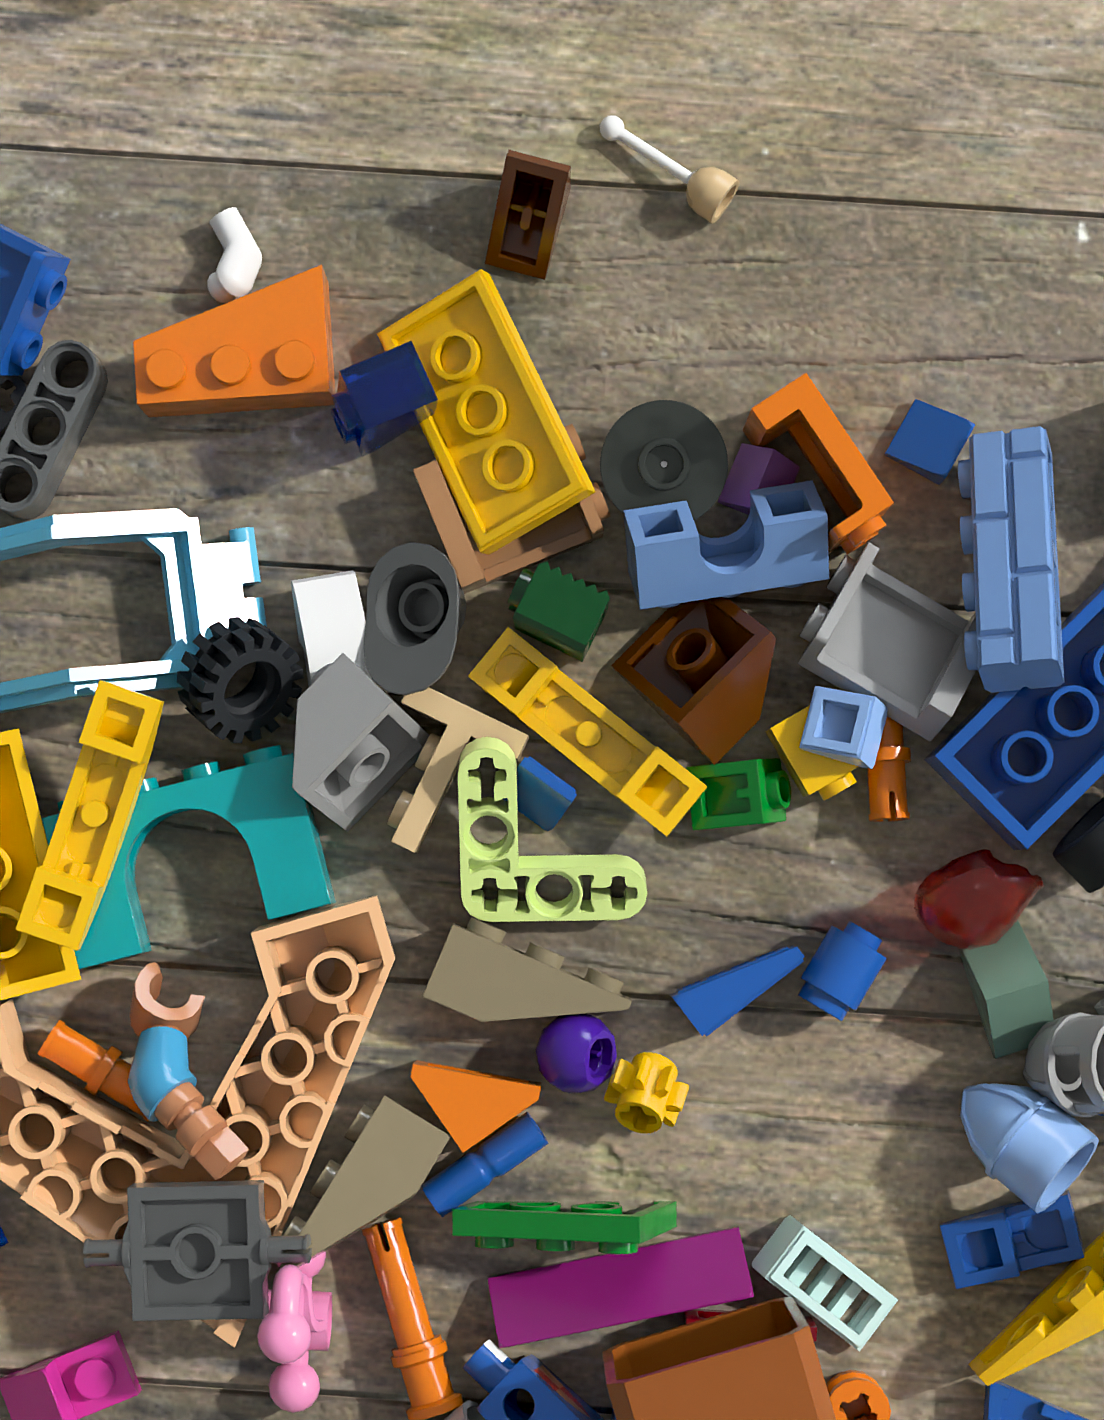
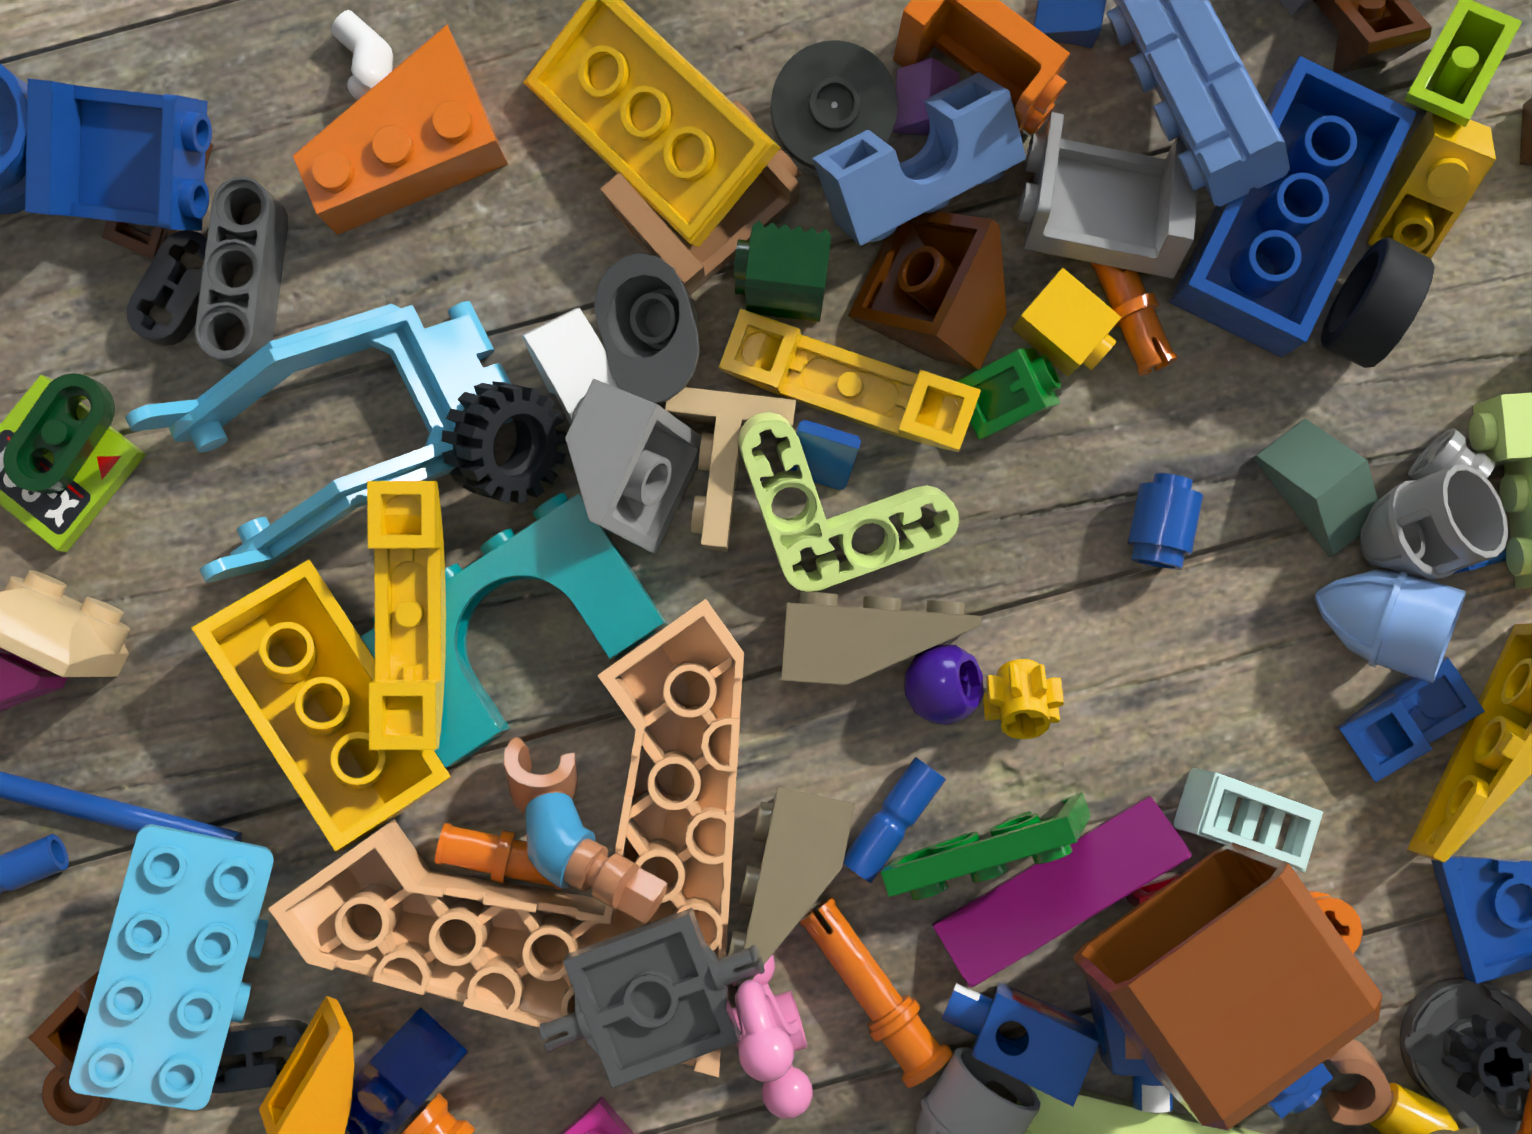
camera: 20 degrees left, 0 degrees up
(382, 398) = (548, 130): clear blue slope -> none
(472, 1101) = (863, 764): orange slope -> none
(724, 994) = (1060, 585): blue slope -> none
(844, 726) = (1091, 287): light blue slope -> none
(974, 899) = (1266, 412): clear red hair -> none

